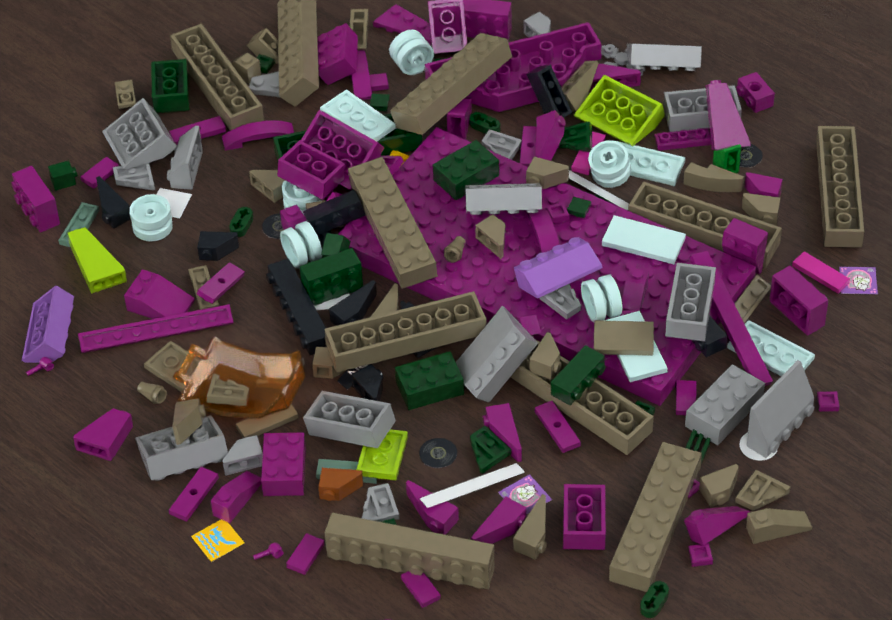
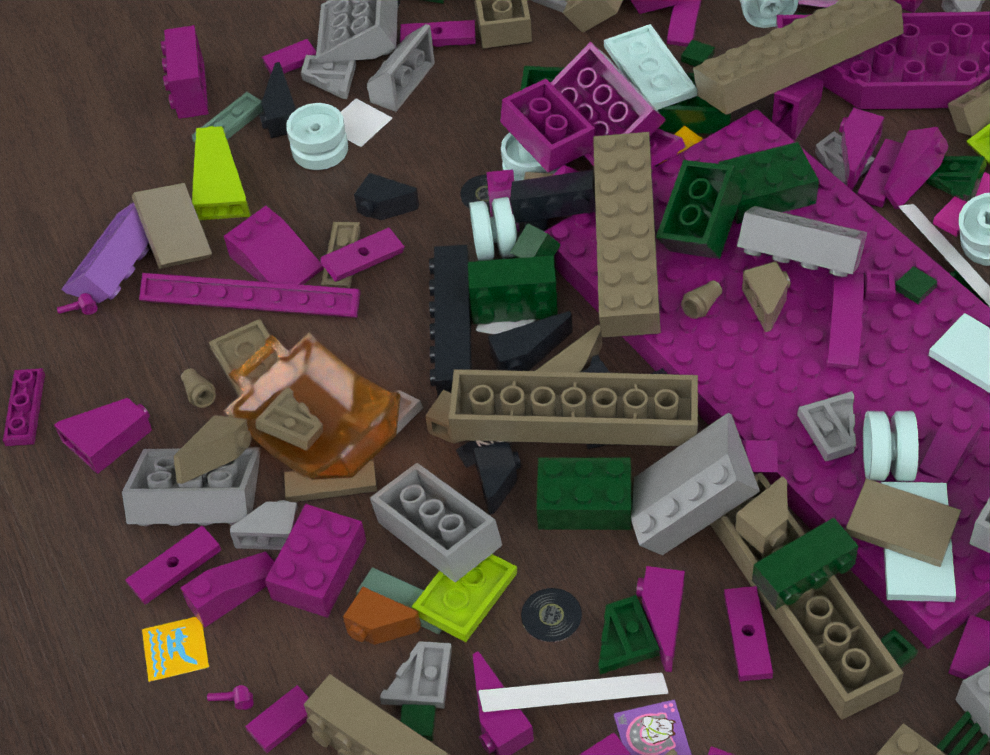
camera: 25 degrees right, 5 degrees up
(39, 436) = (24, 407): none -> magenta tile
(62, 175) = (240, 49): dark green brick -> none
(83, 298) = (171, 225): none -> dark tan tile
(245, 223) = (434, 173): dark green beam -> none
(255, 131) = (513, 53): magenta slope -> none
(267, 183) = (491, 129): dark tan slope -> none
(379, 82) = (708, 26): magenta tile -> none
(435, 195) = (701, 209): none -> dark green brick
(483, 122) = (825, 122): dark green beam -> none
(508, 131) = (859, 138): none -> magenta slope
(546, 173) = (885, 219): dark tan slope -> none
(548, 90) = (939, 96): black brick -> none
(557, 267) = (841, 374): medium lavender slope -> none

